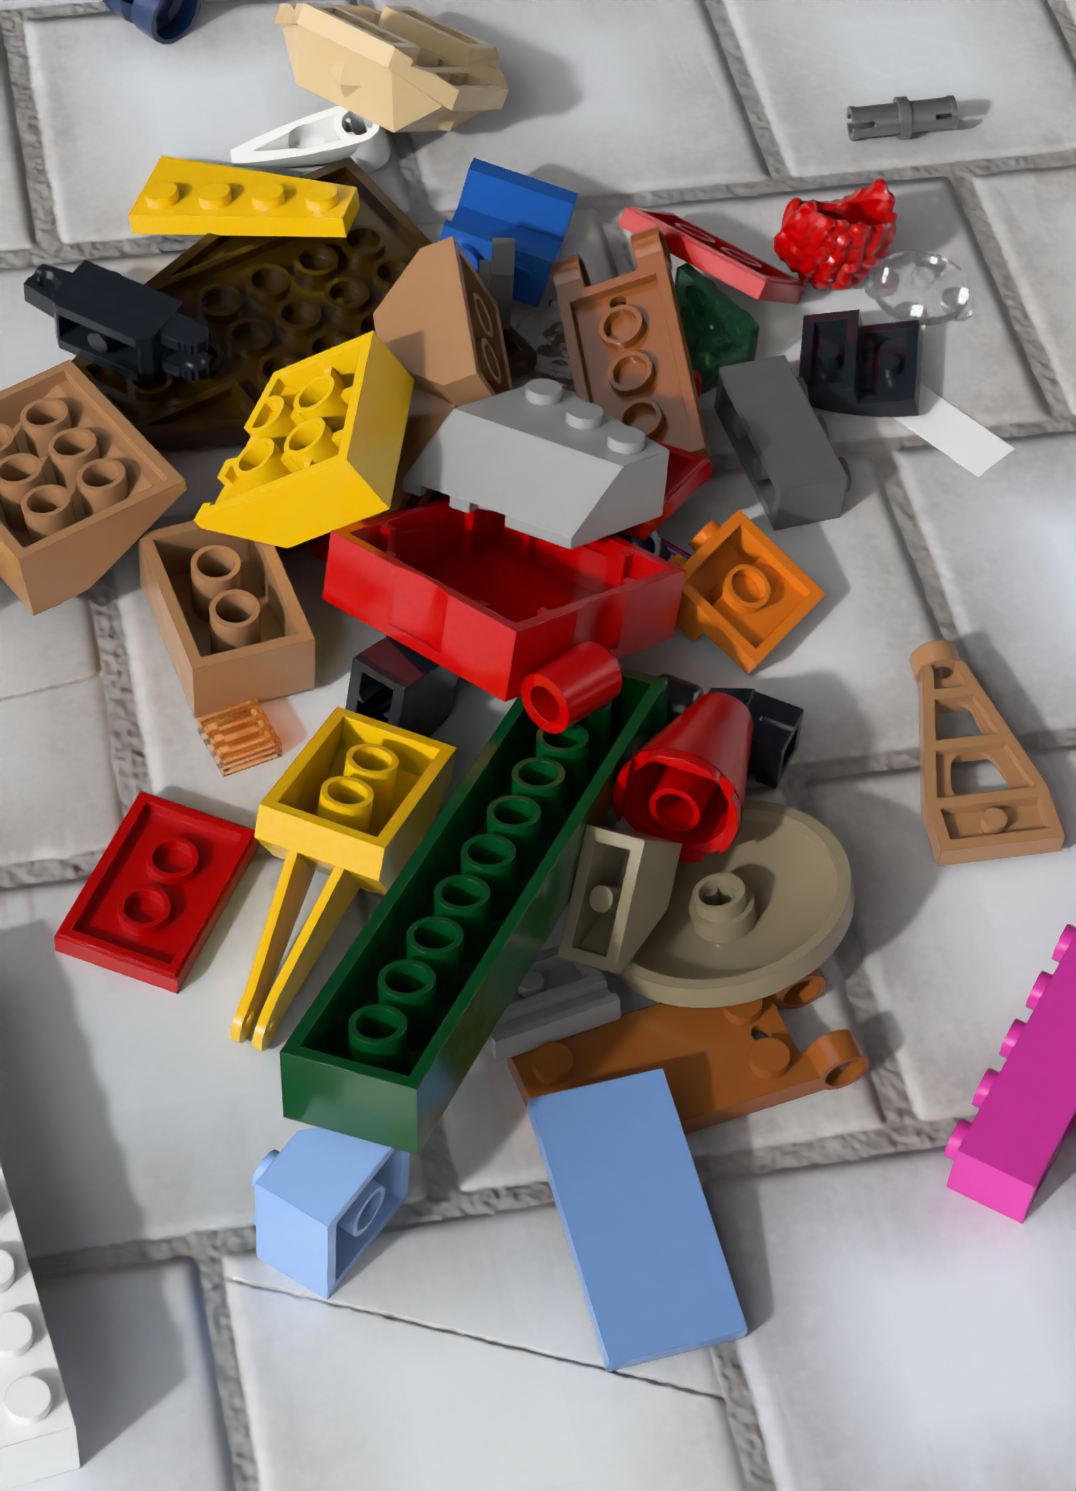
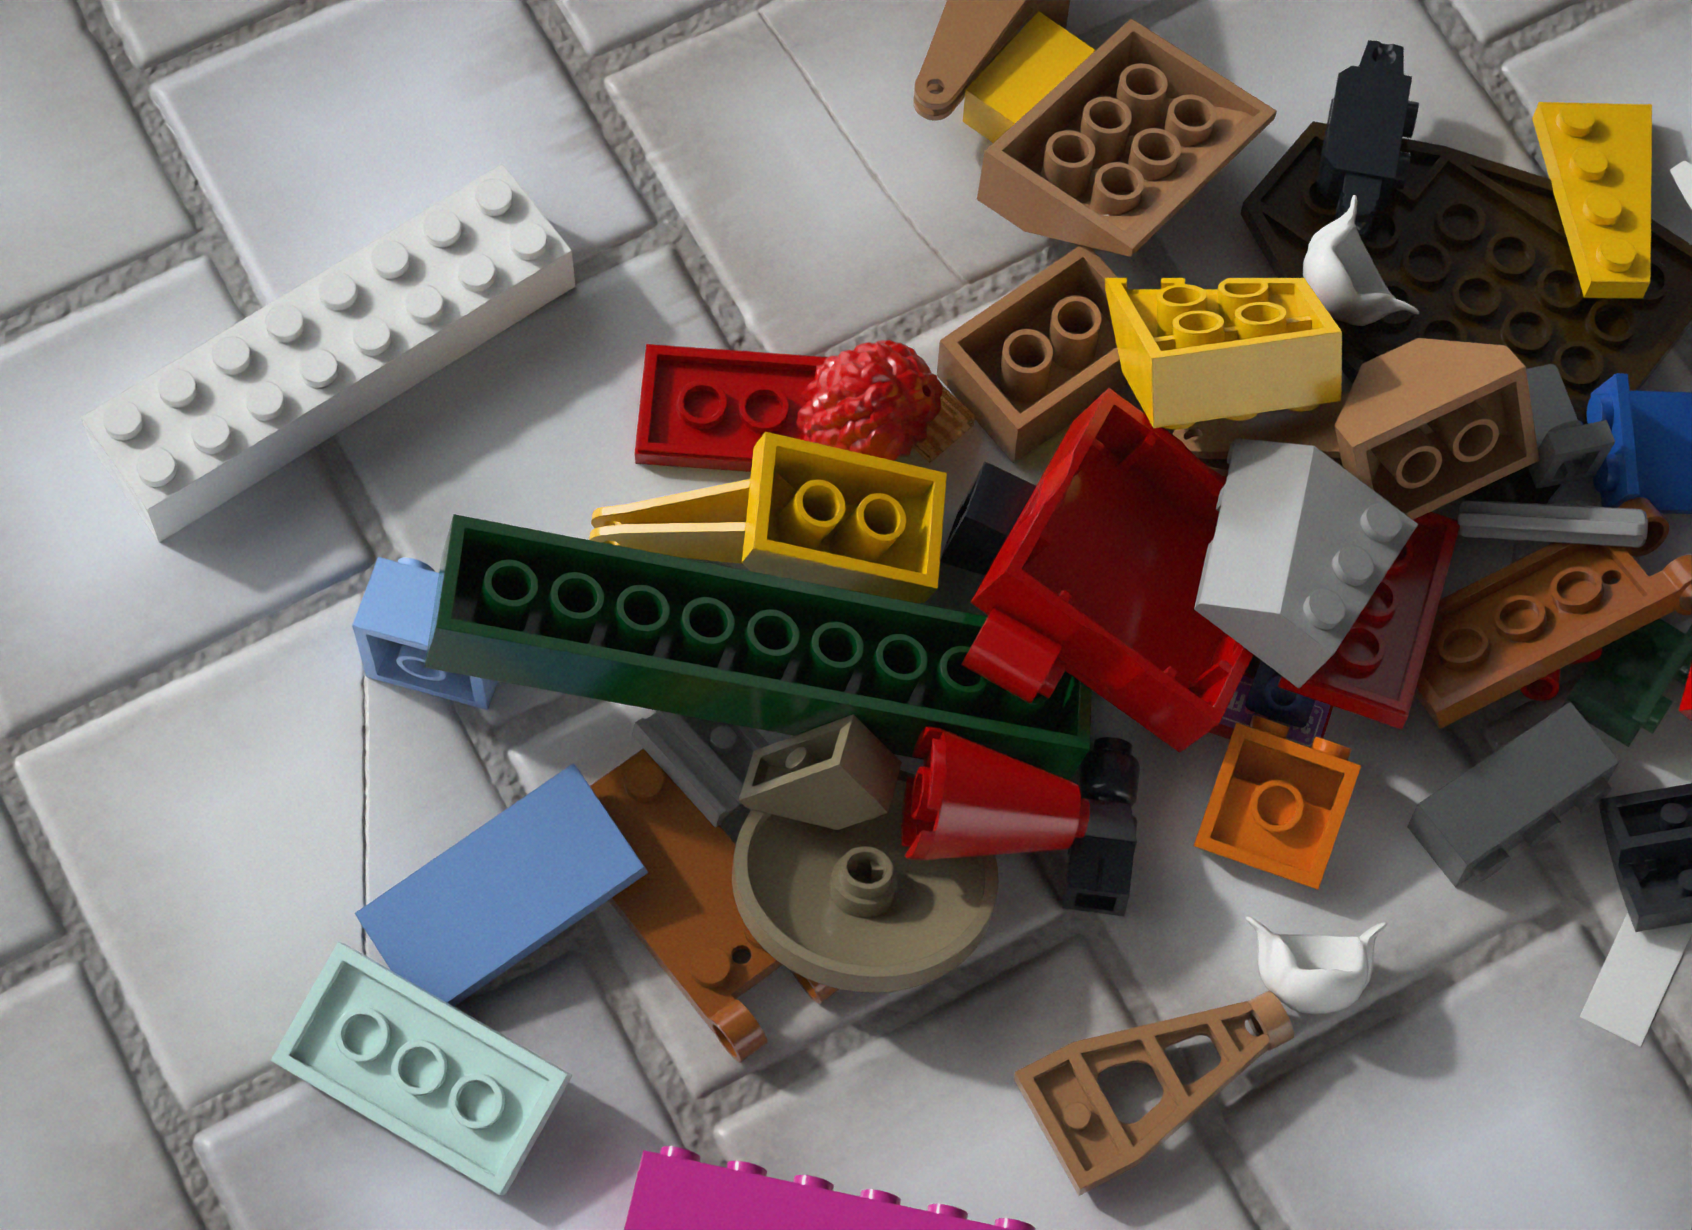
camera: 75 degrees right, 15 degrees up
(221, 758) = (871, 400): none -> red hair
(241, 377) = (1345, 275): none -> white hair
(555, 317) = (1553, 523): none -> light grey axle
(805, 1338) = (421, 1068): none -> light aqua plate
(903, 610) = (1313, 970): none -> white hair

